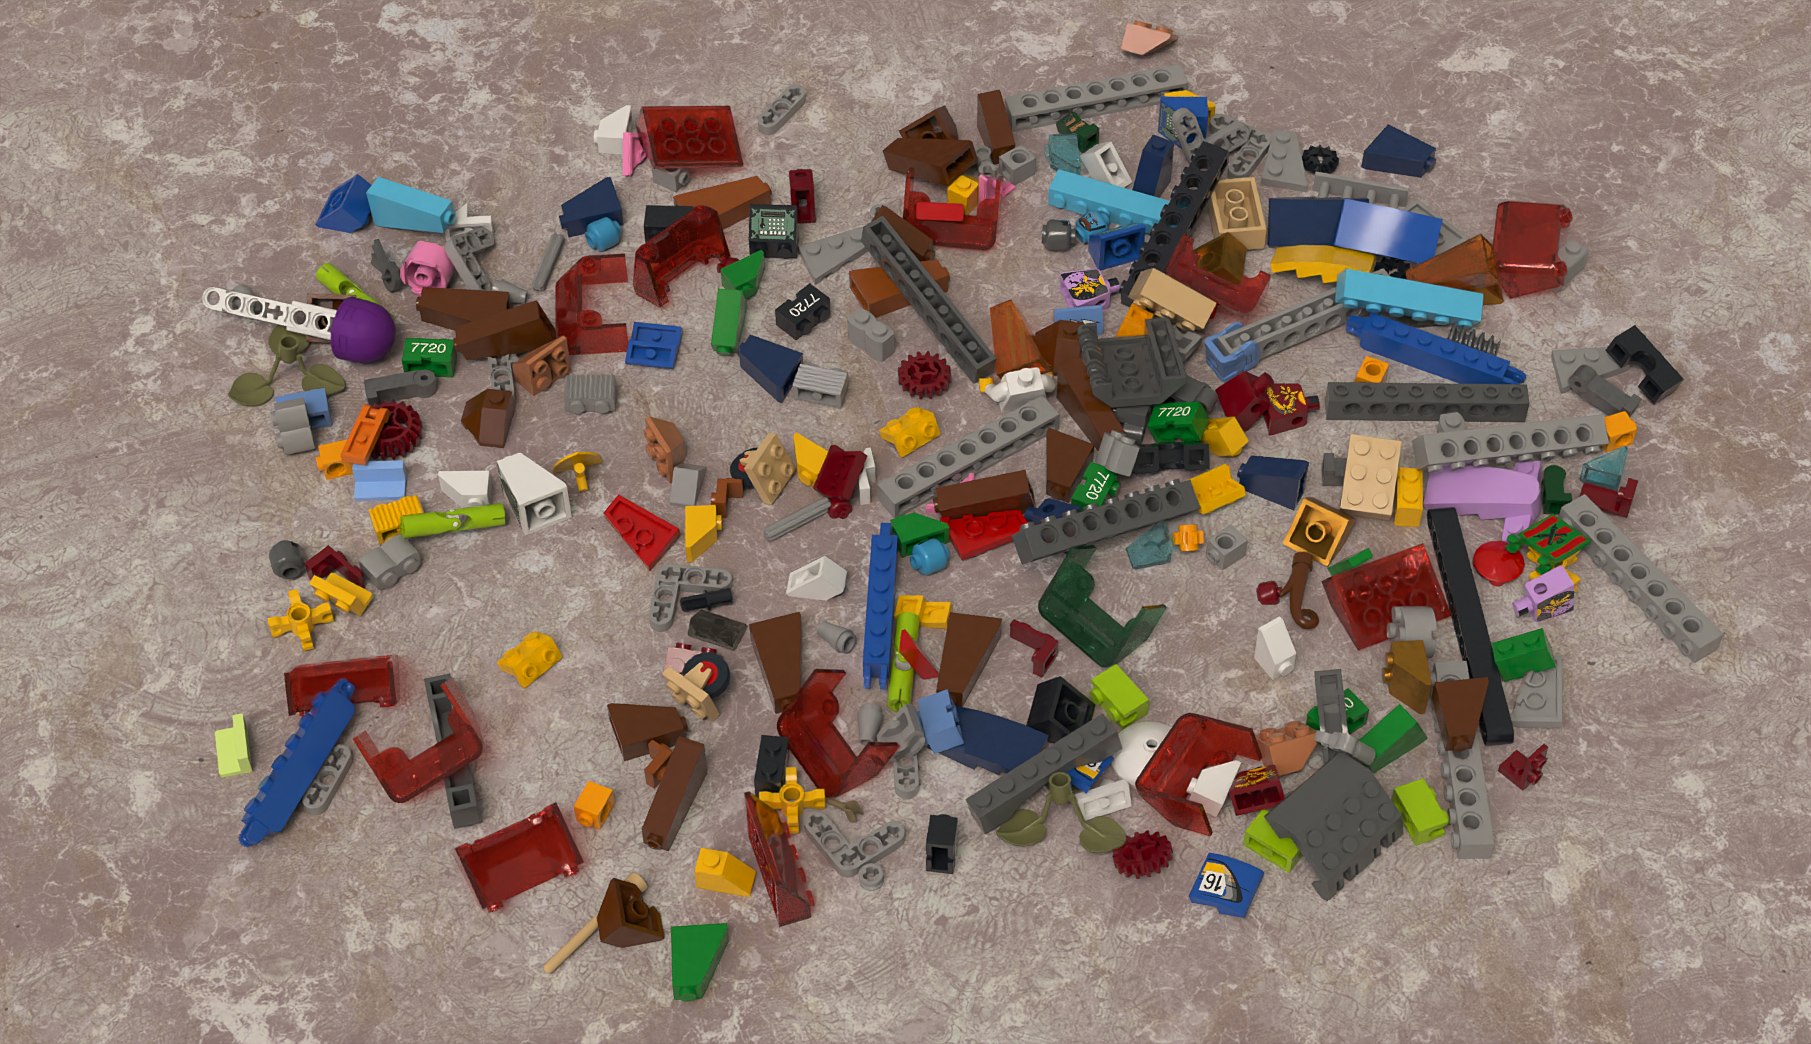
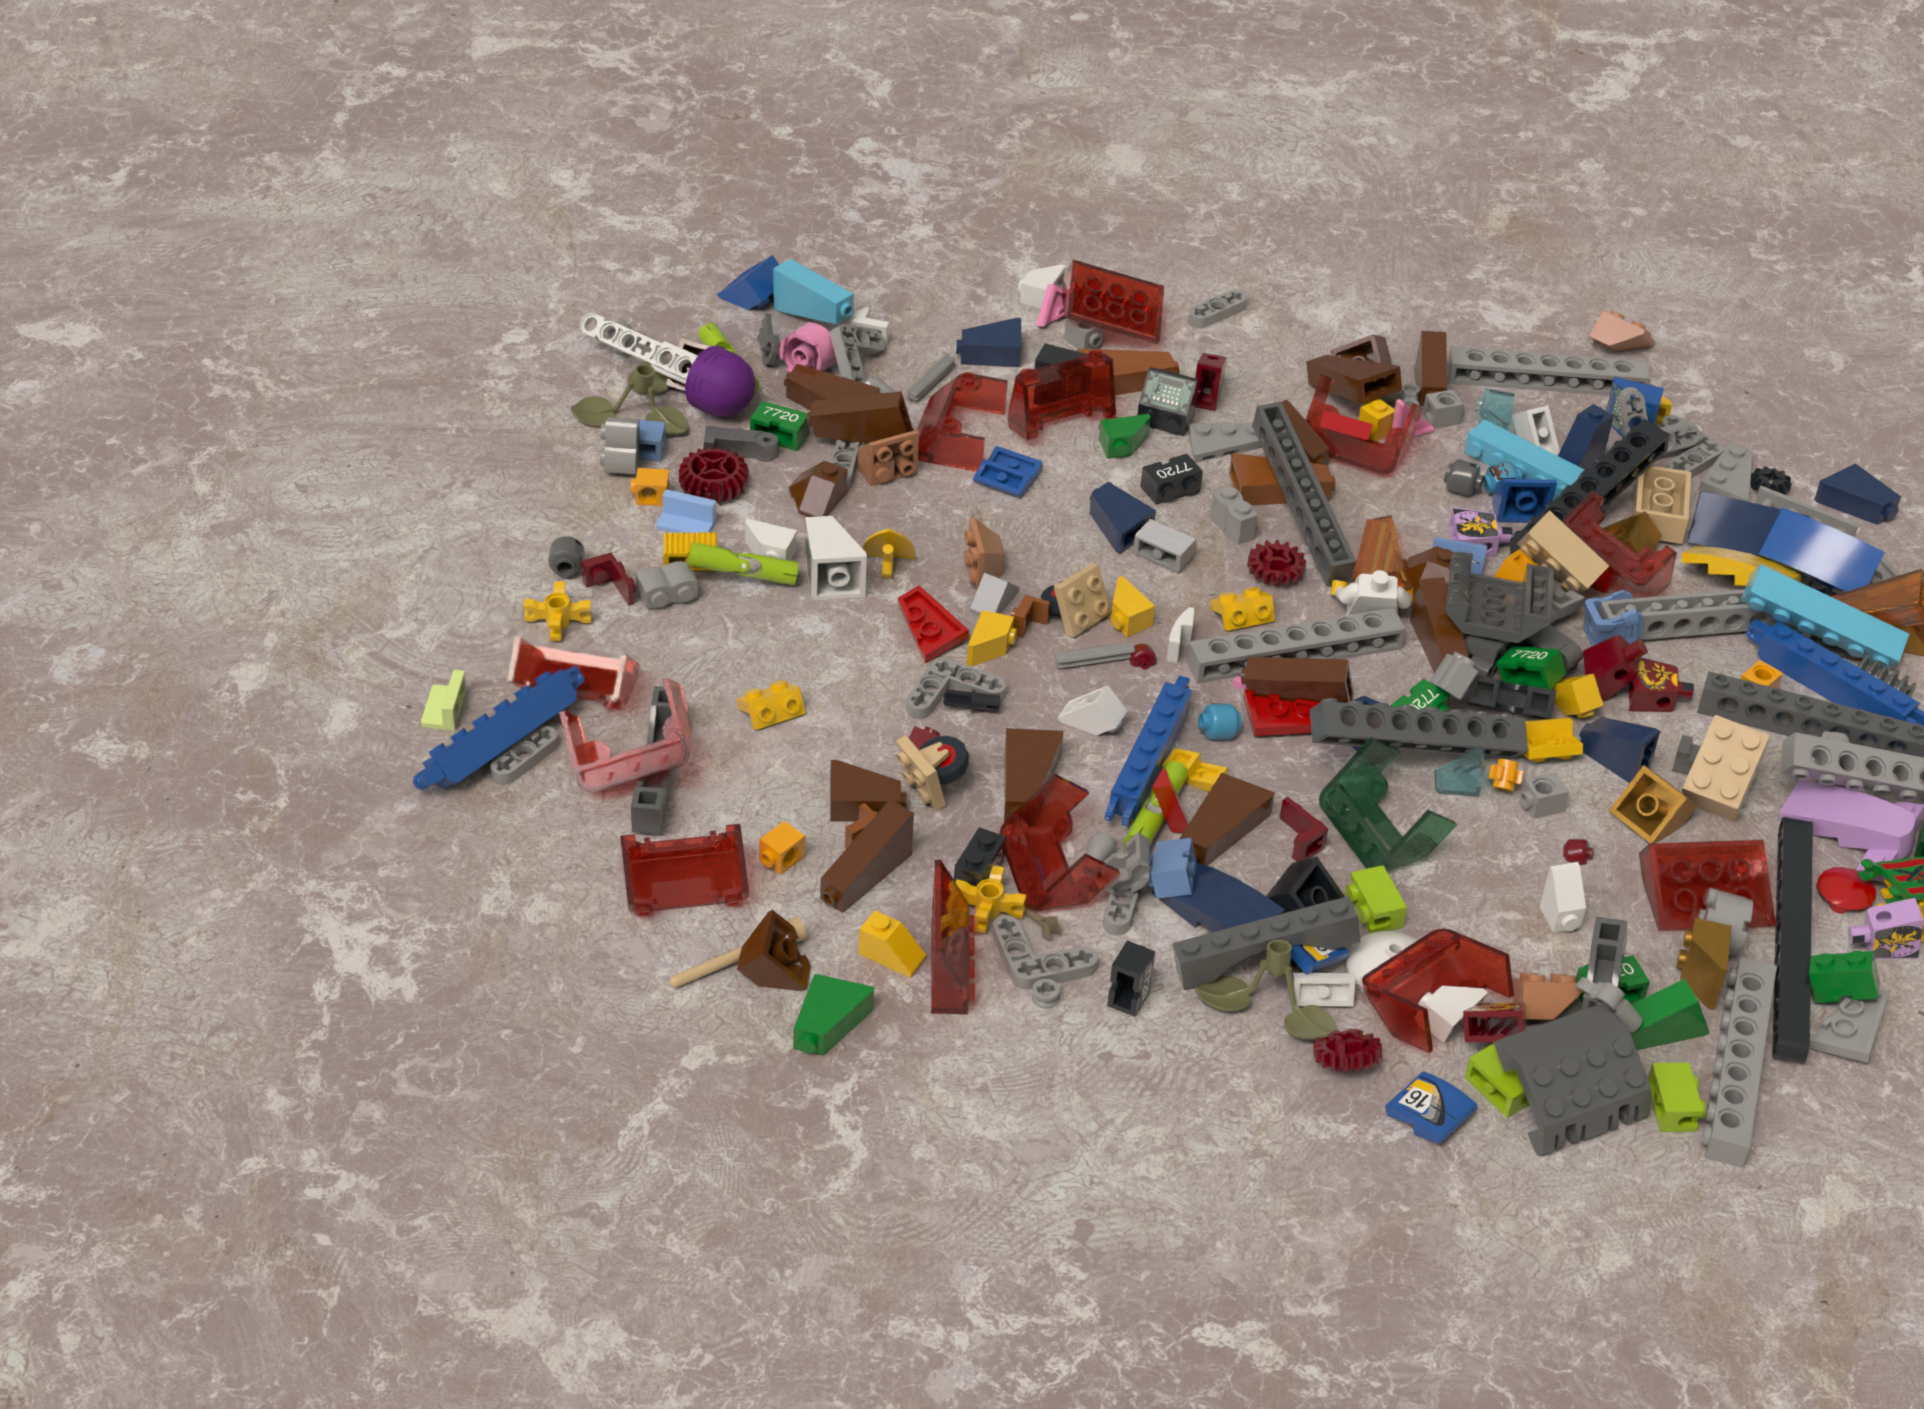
camera: 15 degrees right, 10 degrees down
(342, 592) = (607, 598): yellow bracket -> none
(364, 434) = (686, 467): orange plate -> none
(590, 393) = (926, 494): light grey brick -> none
(603, 234) = (995, 364): dark azure head -> none
(716, 629) = (972, 730): clear smoke slope -> none
(728, 321) = (1092, 465): green slope -> none
(838, 637) = (1096, 768): light grey cone -> none
(839, 473) = (1152, 621): dark red bracket -> none
(916, 529) = (1215, 689): green slope -> none
(1065, 463) = (1397, 673): reddish brown slope -> none
(1073, 124) = (1523, 394): dark green leg -> none
(1301, 565) = (1621, 836): reddish brown plant -> none
(1350, 562) = (1682, 835): green tile -> none
(1408, 497) = (1763, 800): yellow brick -> none
(1459, 710) = (1752, 1006): reddish brown slope -> none
(1524, 770) = (1812, 1089): dark red bracket -> none

